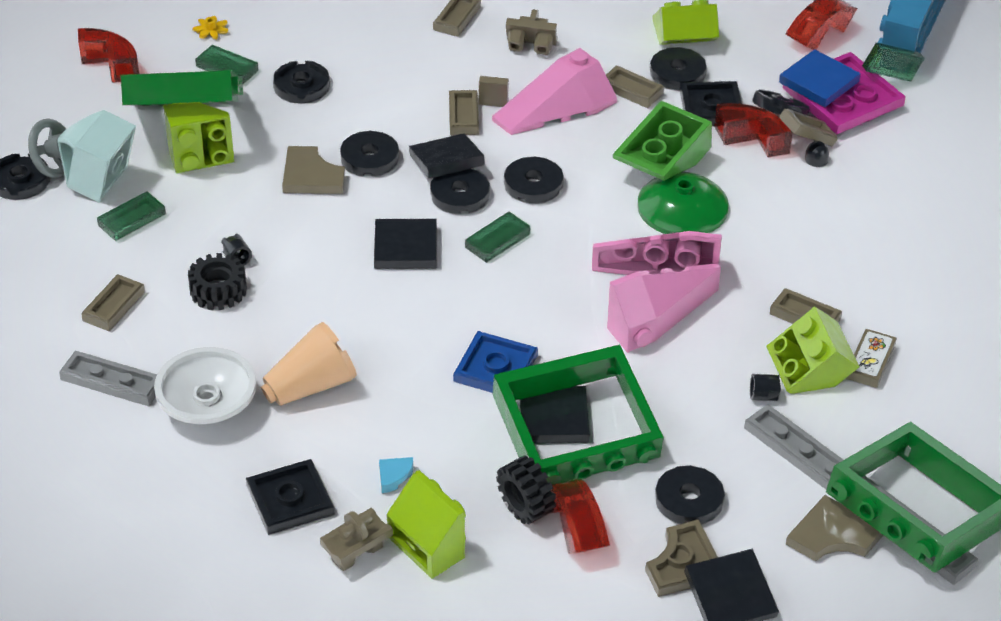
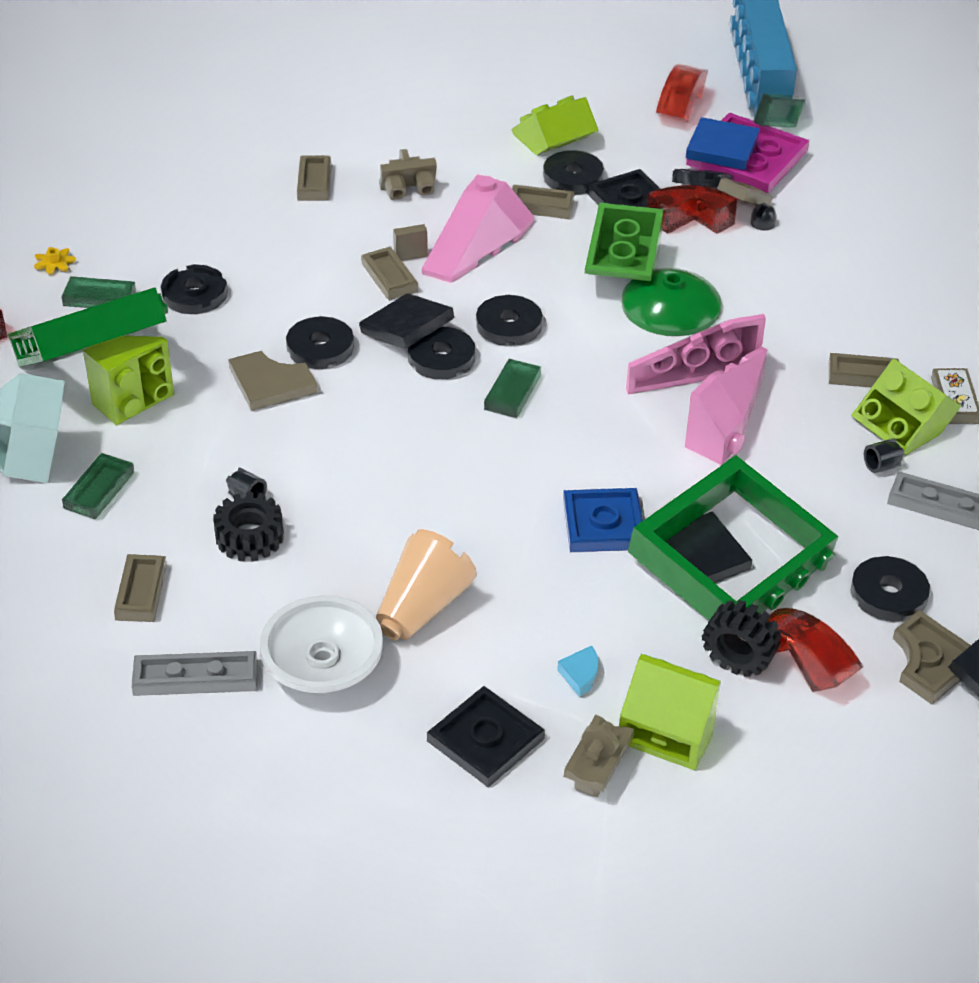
camera: 25 degrees left, 0 degrees up
(405, 243) = (423, 424): black tile -> none

